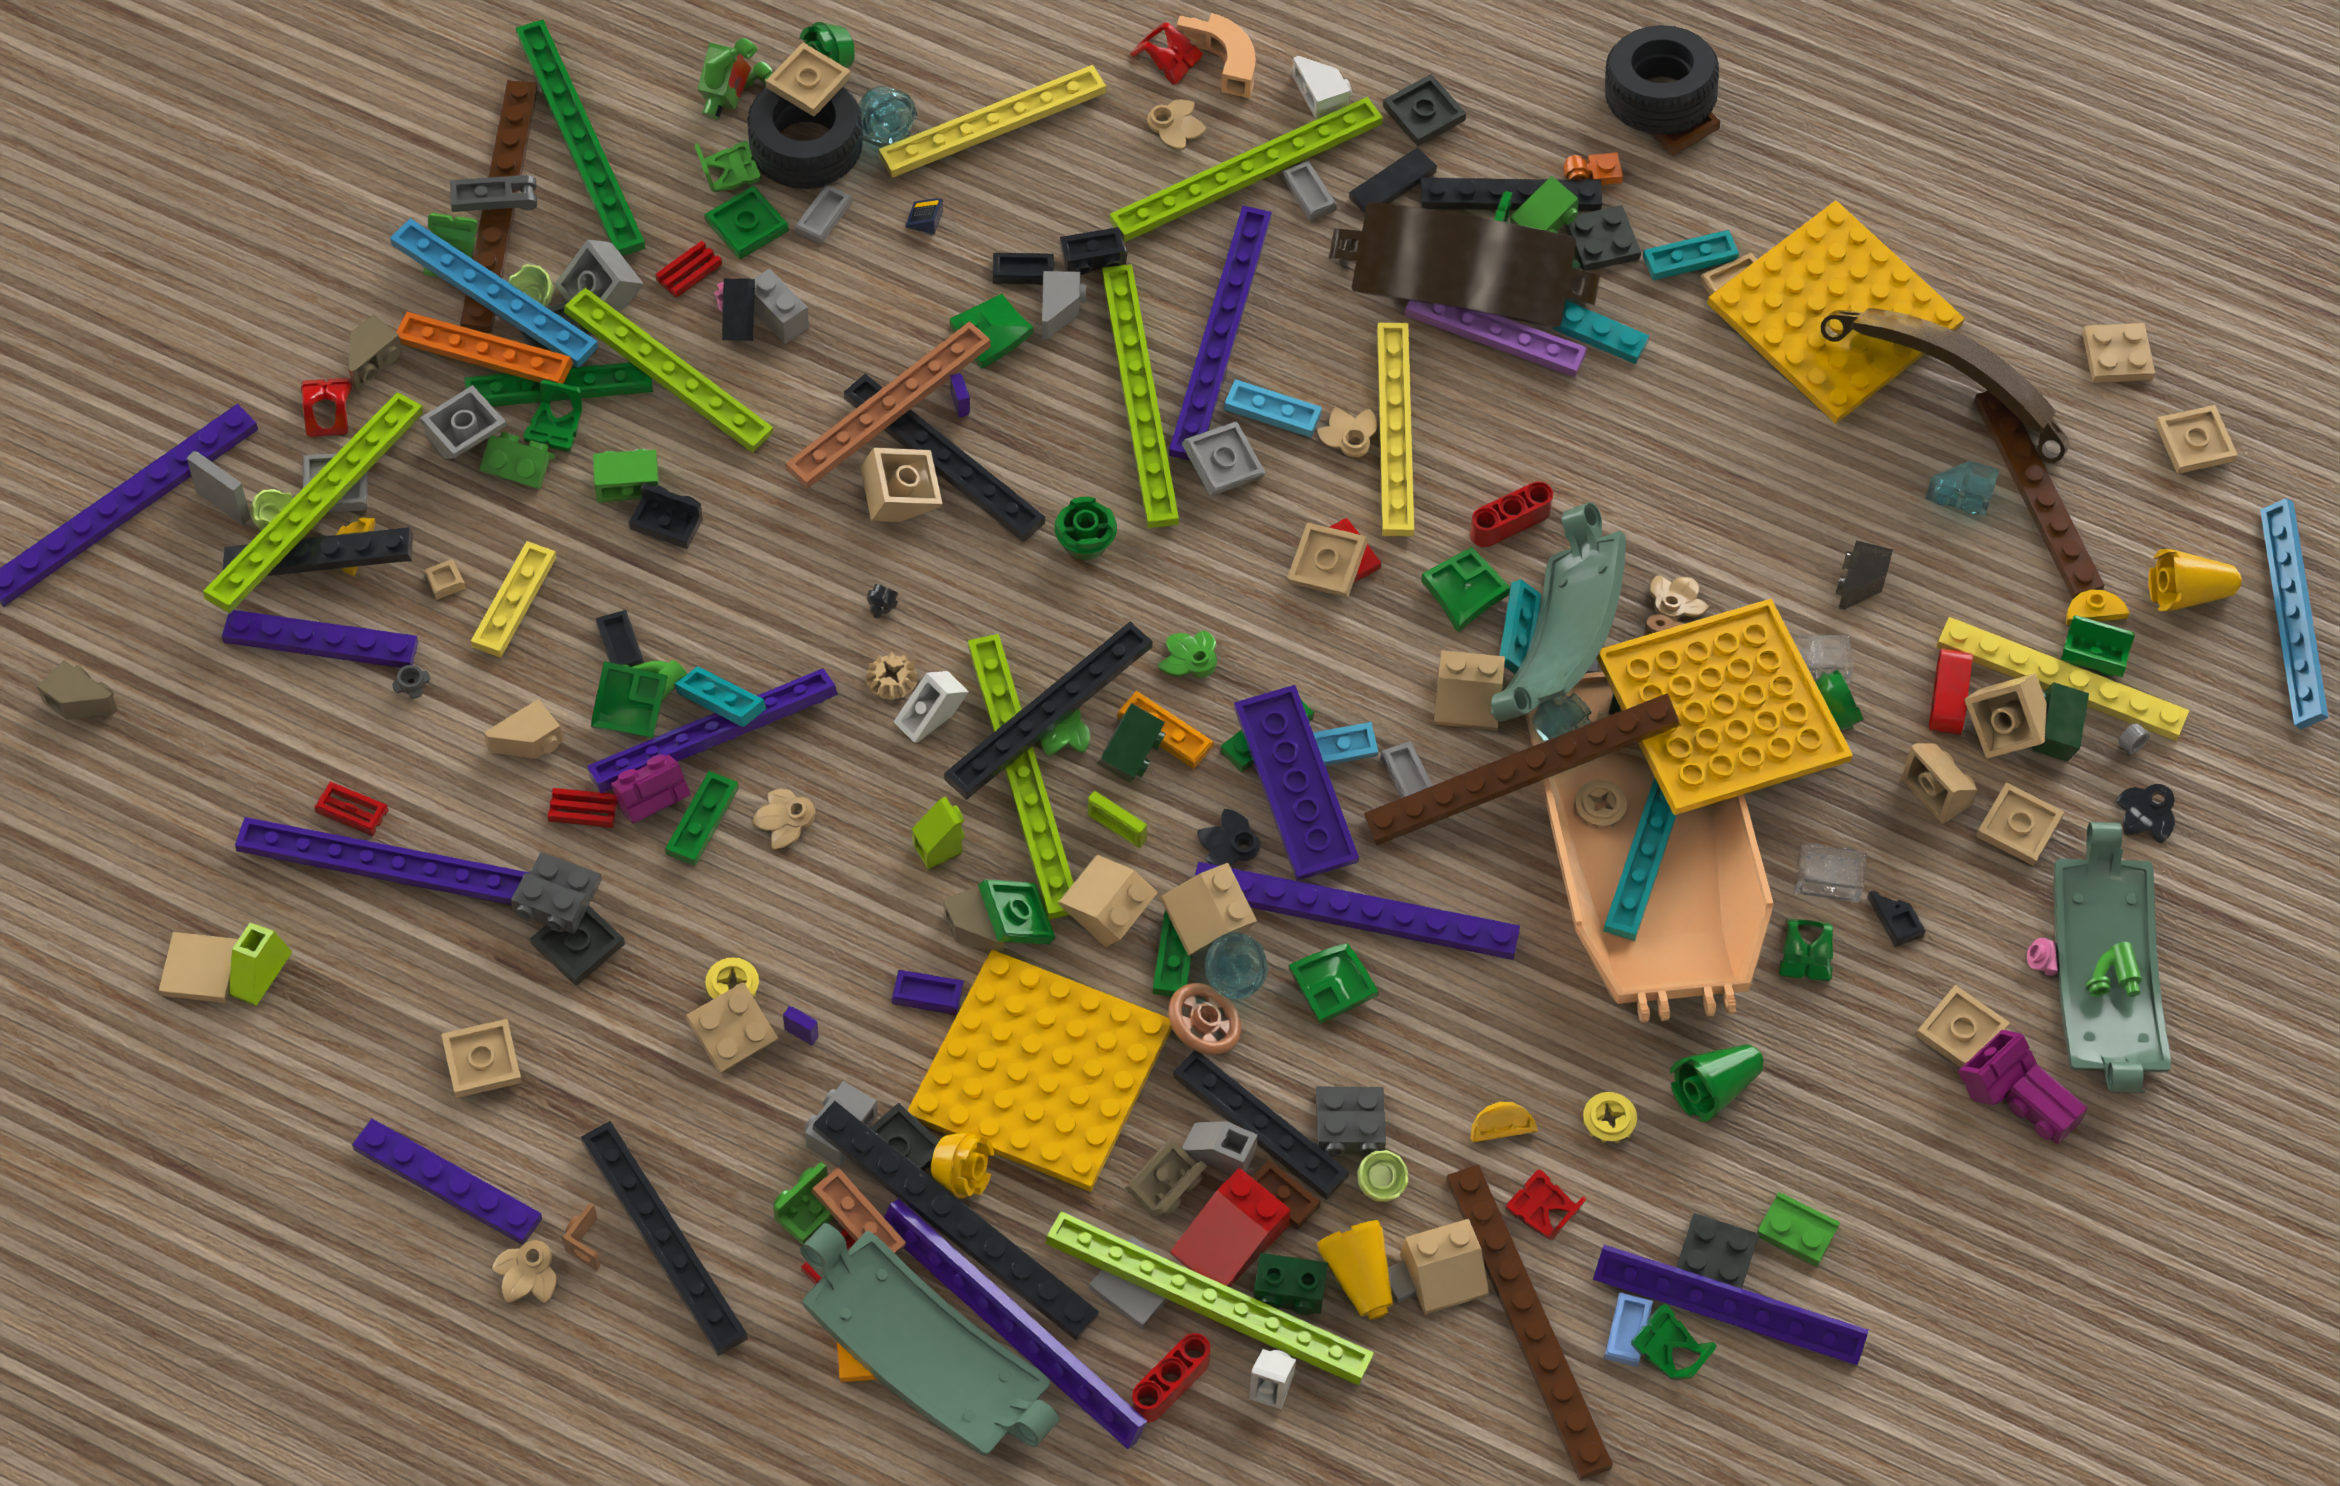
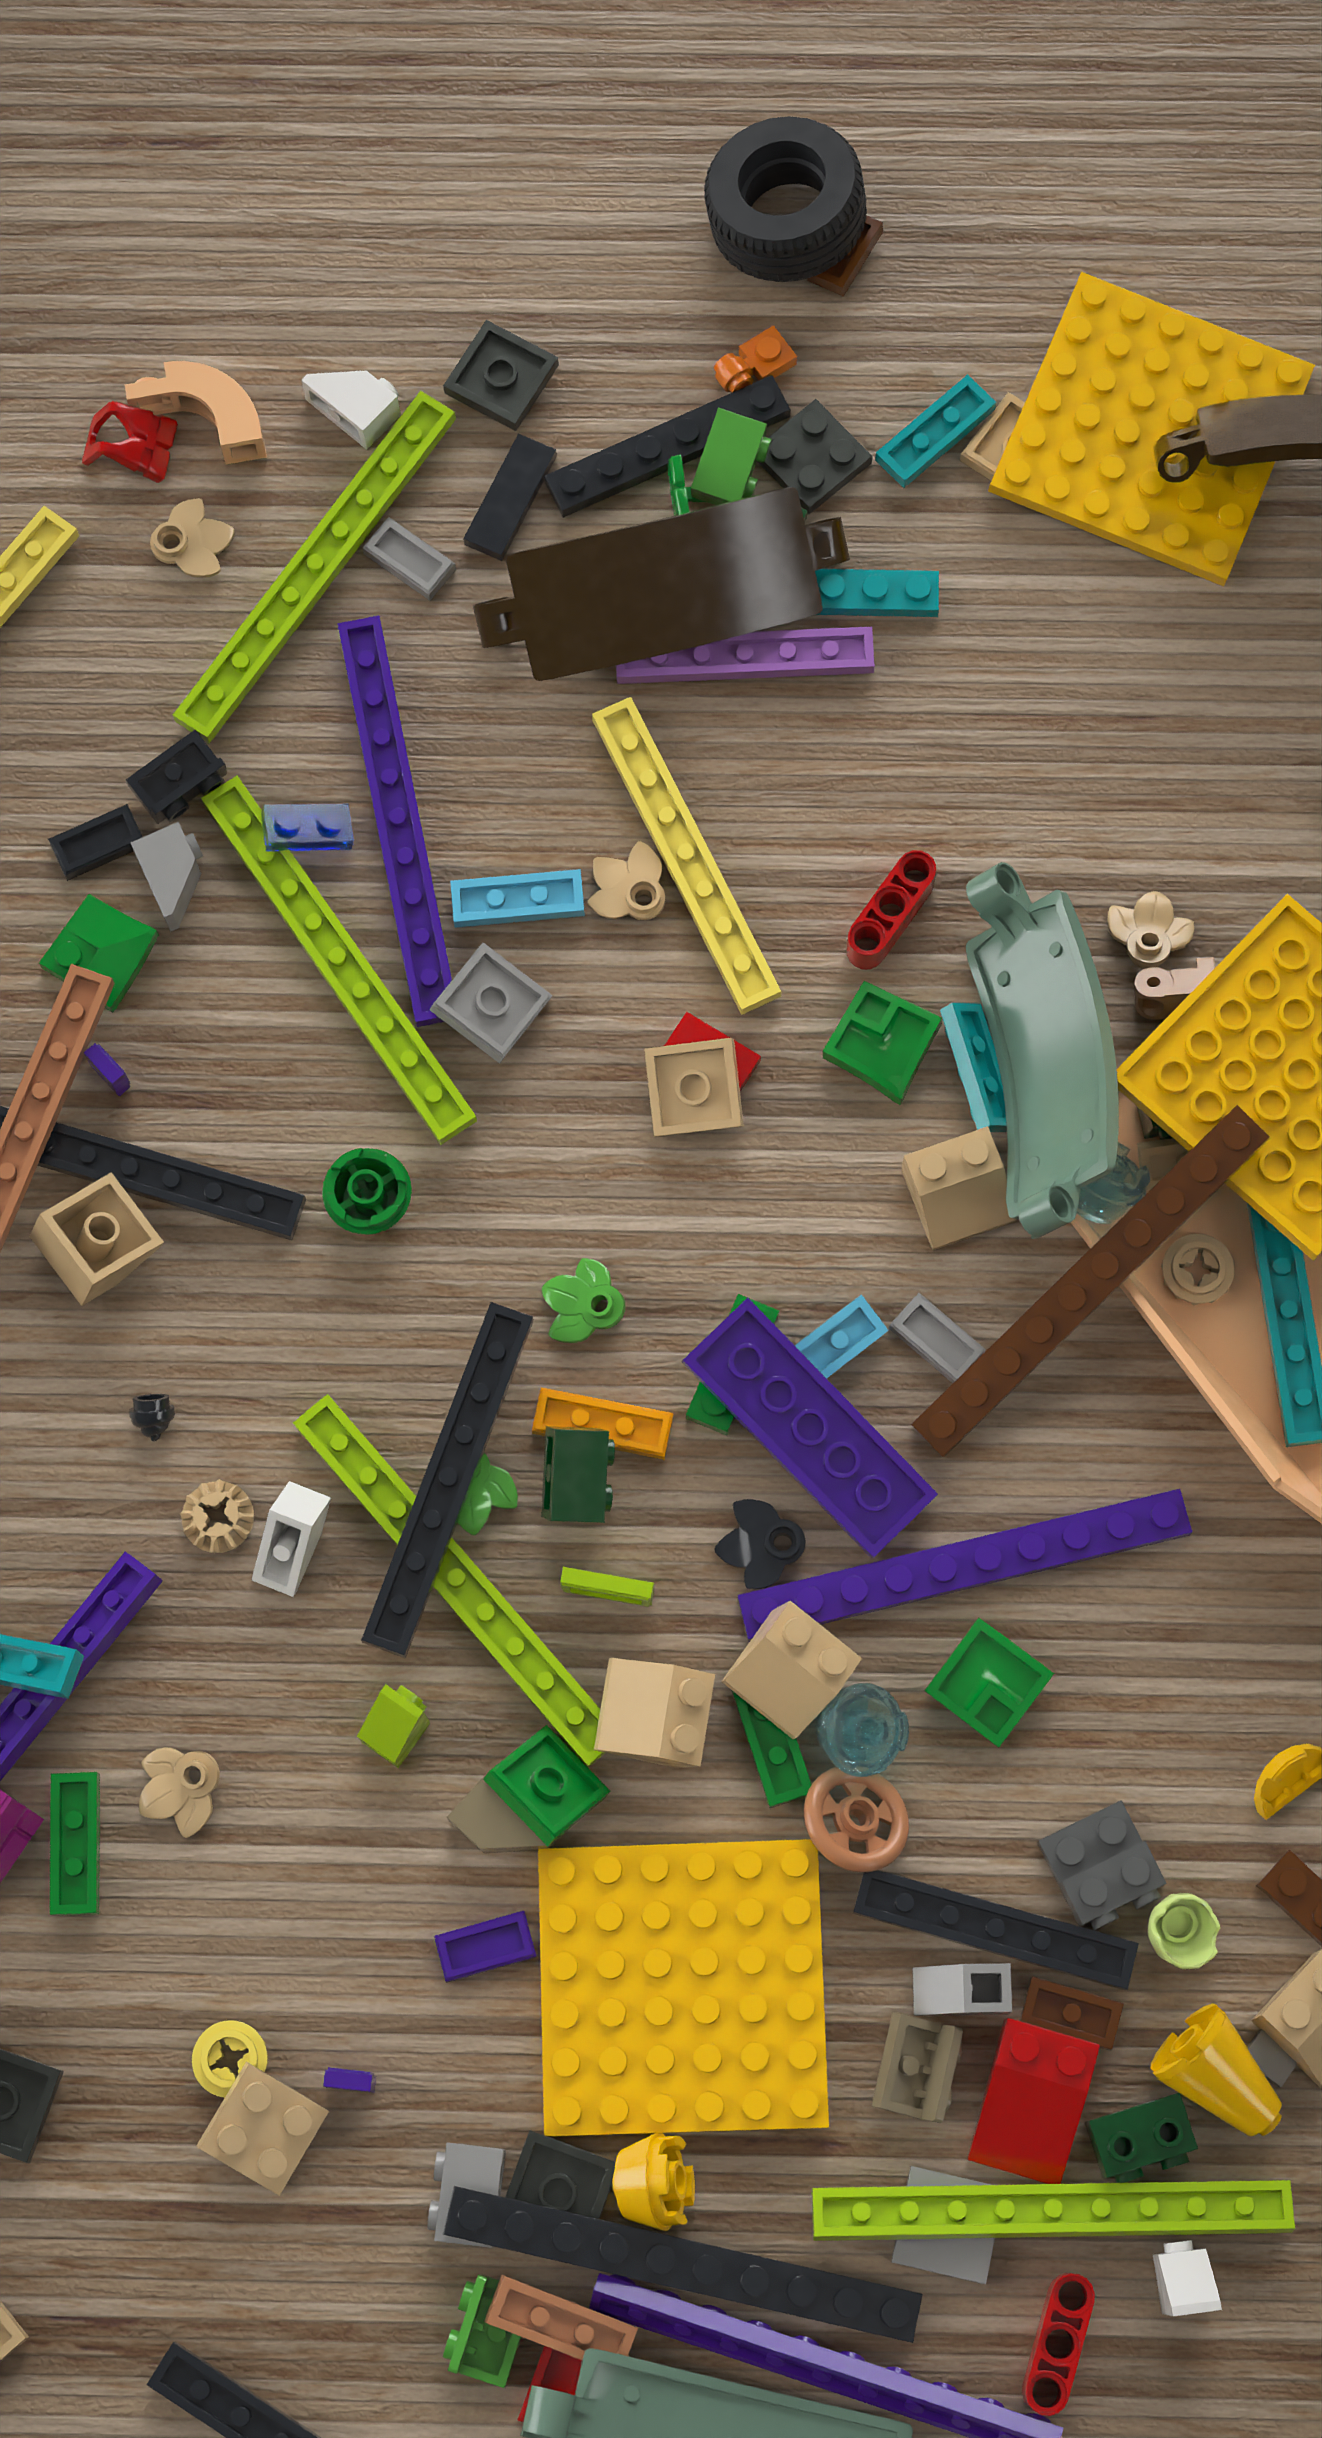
camera: 20 degrees left, 15 degrees up
(1160, 312) = (307, 827): none -> clear blue plate

